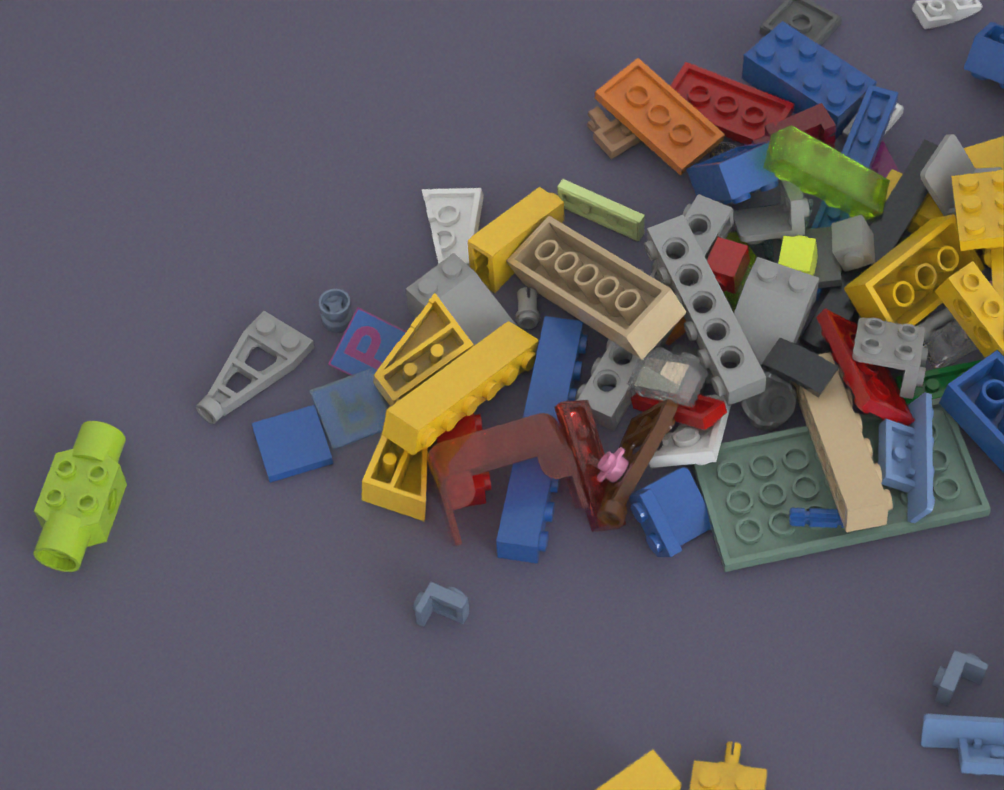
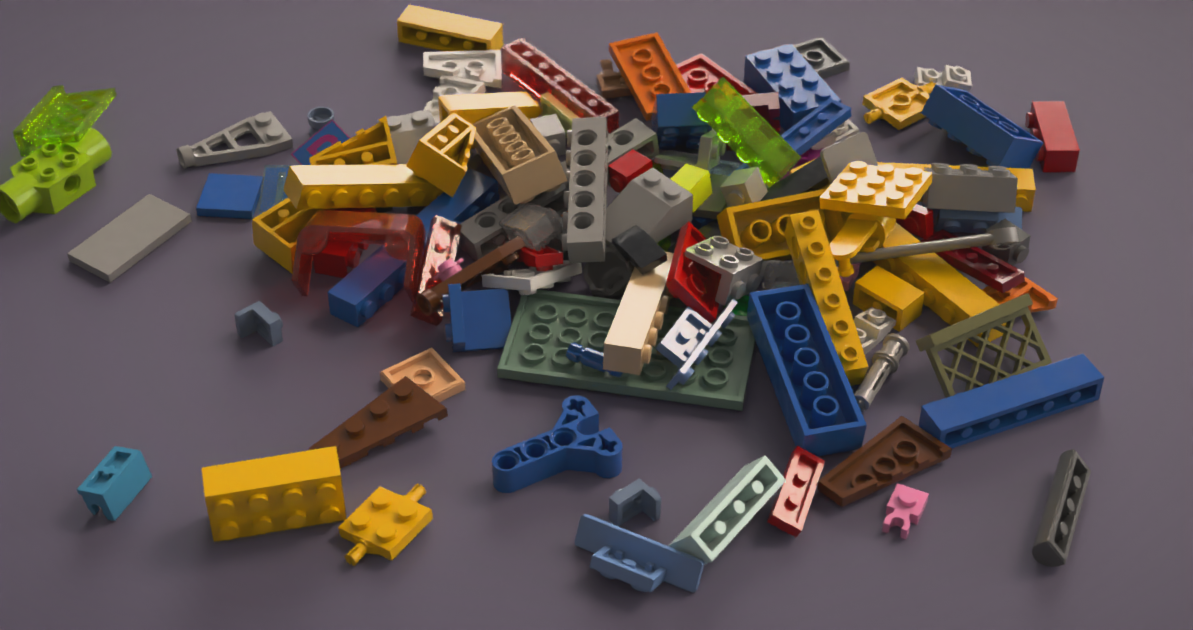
camera: 20 degrees right, 15 degrees down
(24, 422) = (61, 118): none -> clear neon green fence
(217, 544) = (129, 238): none -> light grey tile
(395, 127) = (447, 30): none -> yellow brick
(442, 167) = (471, 65): none -> white wing
(519, 315) = (444, 154): none -> yellow wedge
(550, 161) = (541, 75): none -> clear red brick
(594, 228) = (552, 131): none -> light grey brick
(650, 607) = (428, 372): none -> light nougat tile
(650, 675) = (378, 423): none -> reddish brown wing
(842, 599) = (570, 445): none -> blue beam
(924, 55) = (897, 103): none -> yellow plate

